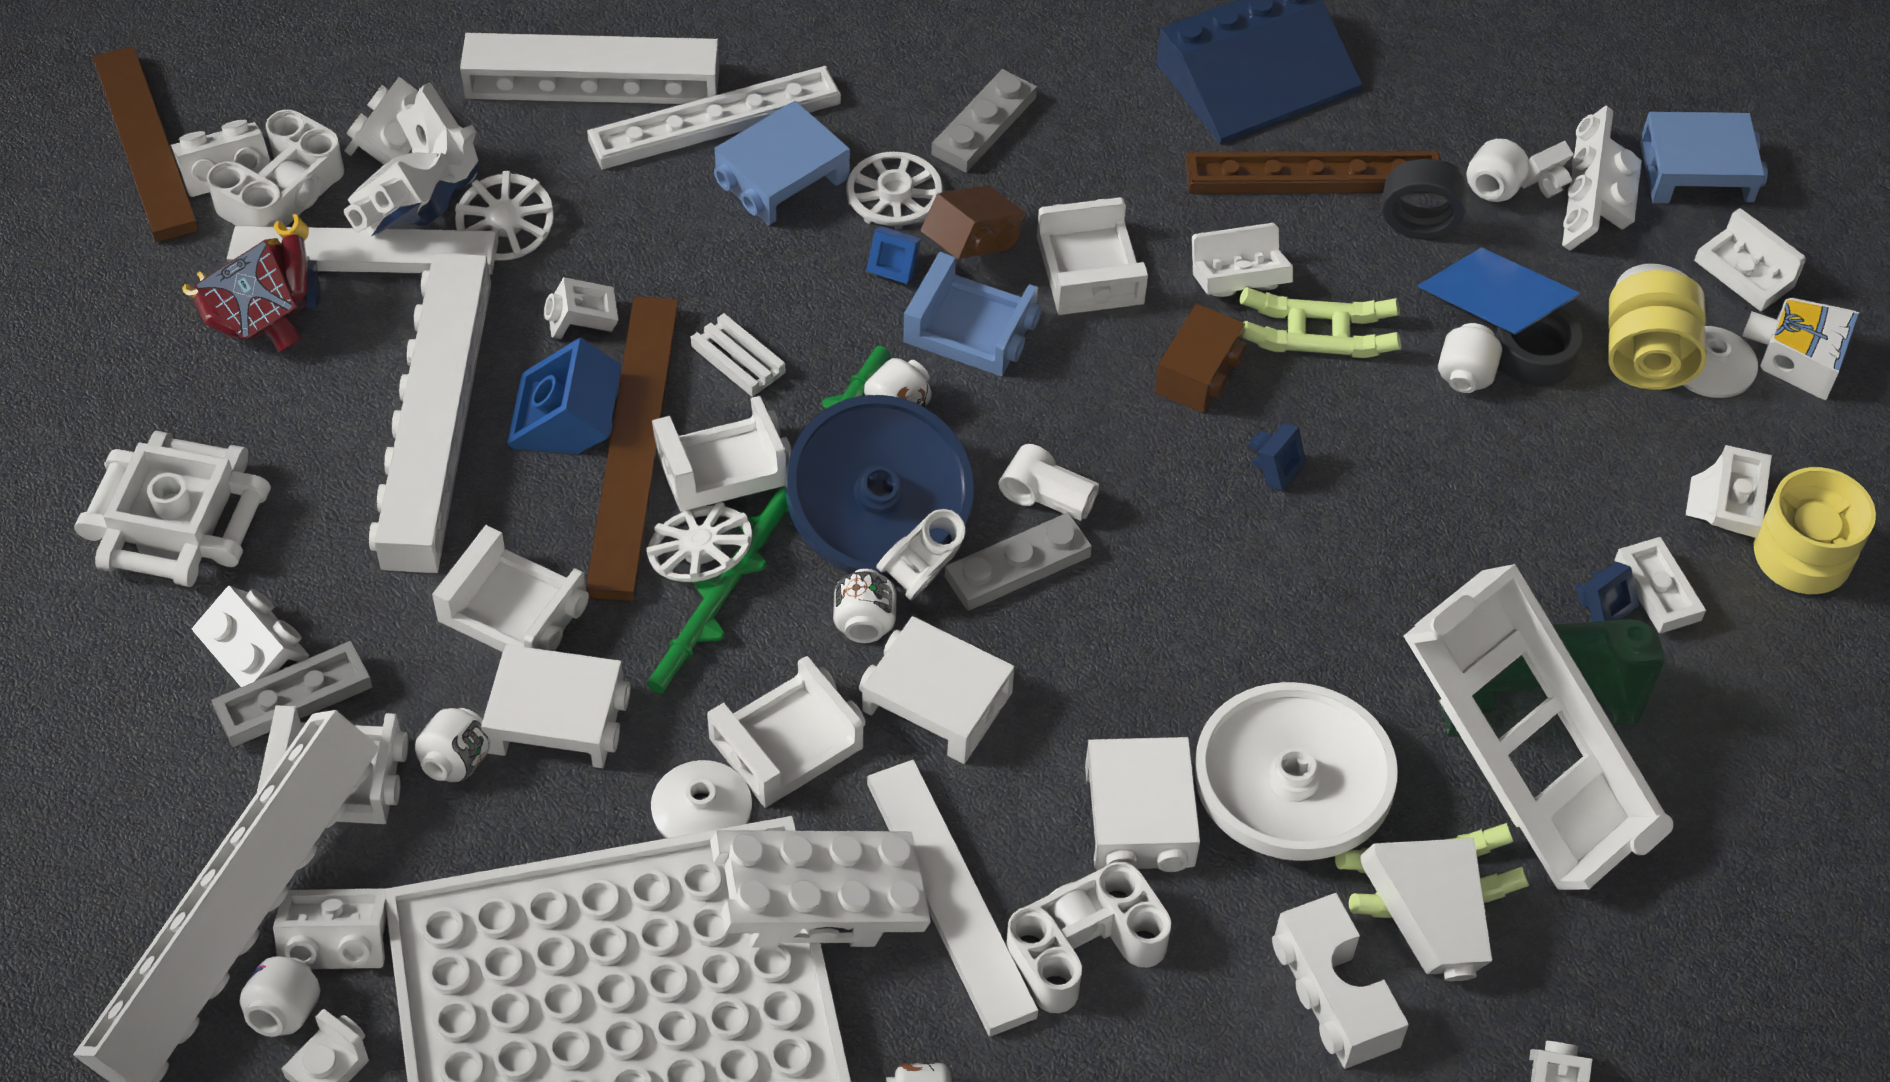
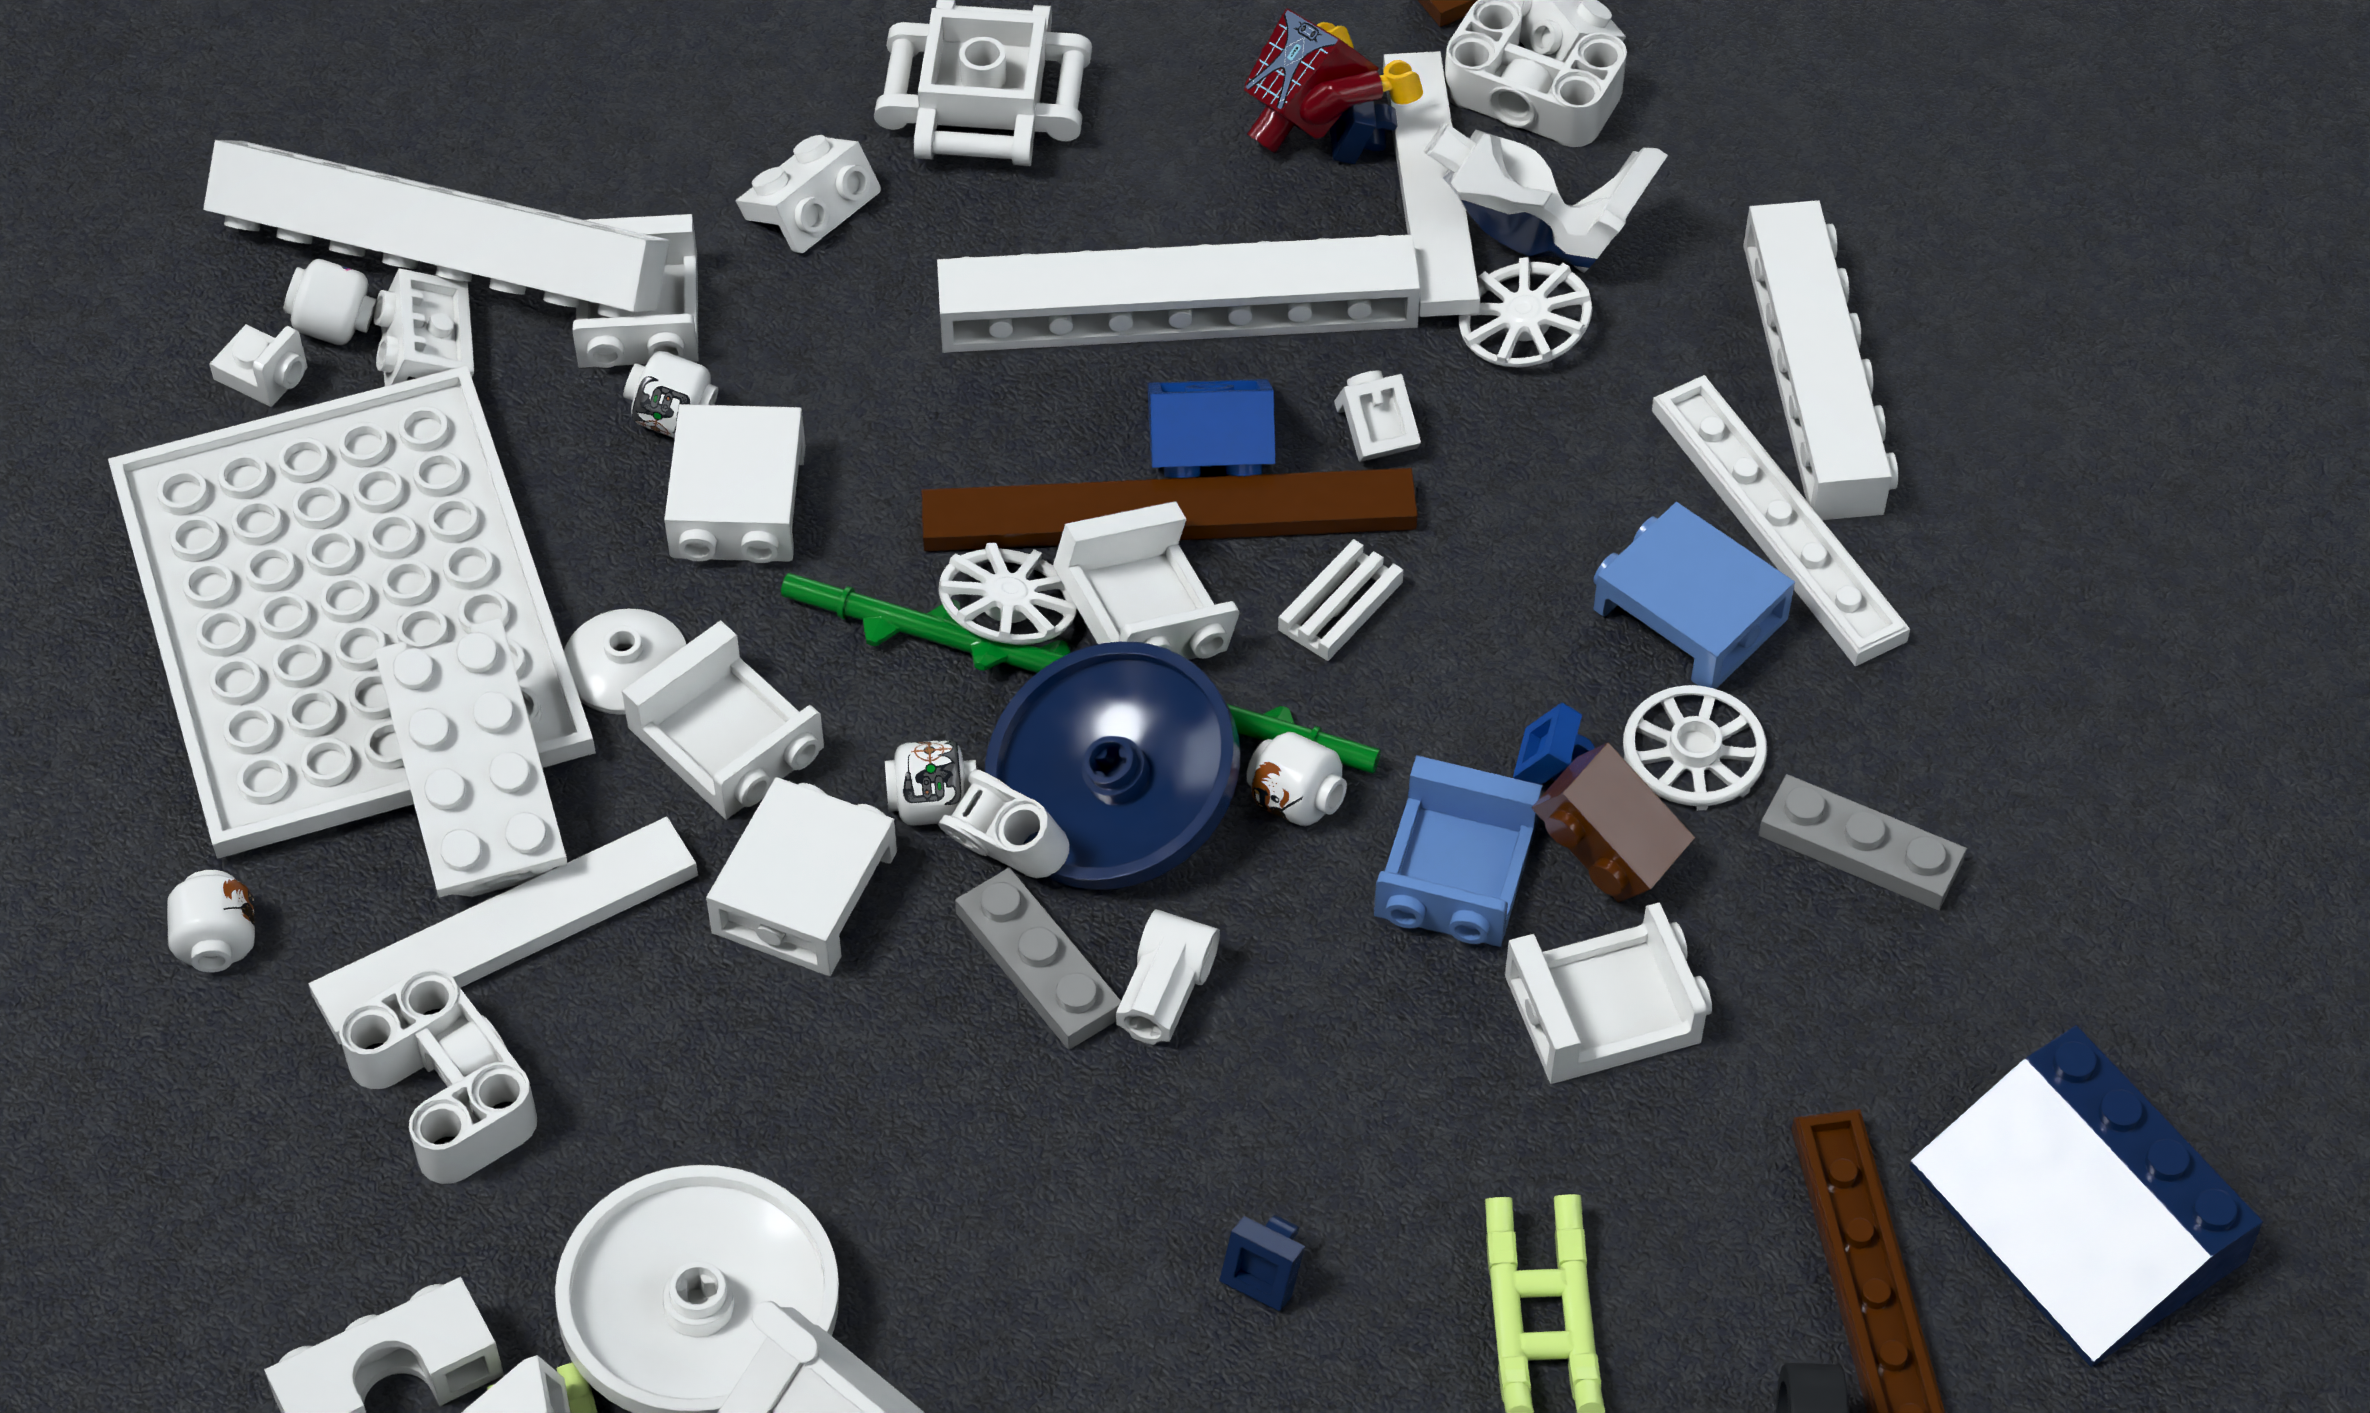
camera: 85 degrees right, 0 degrees up
(307, 685) = (736, 242): light grey plate -> none
(381, 132) = (1681, 182): white bracket -> none
(507, 597) = (898, 416): white panel -> none
(1143, 802) = (637, 1113): white panel -> none
(1200, 358) = (1432, 1146): reddish brown brick -> none
(1240, 259) = (1636, 1189): white bracket -> none

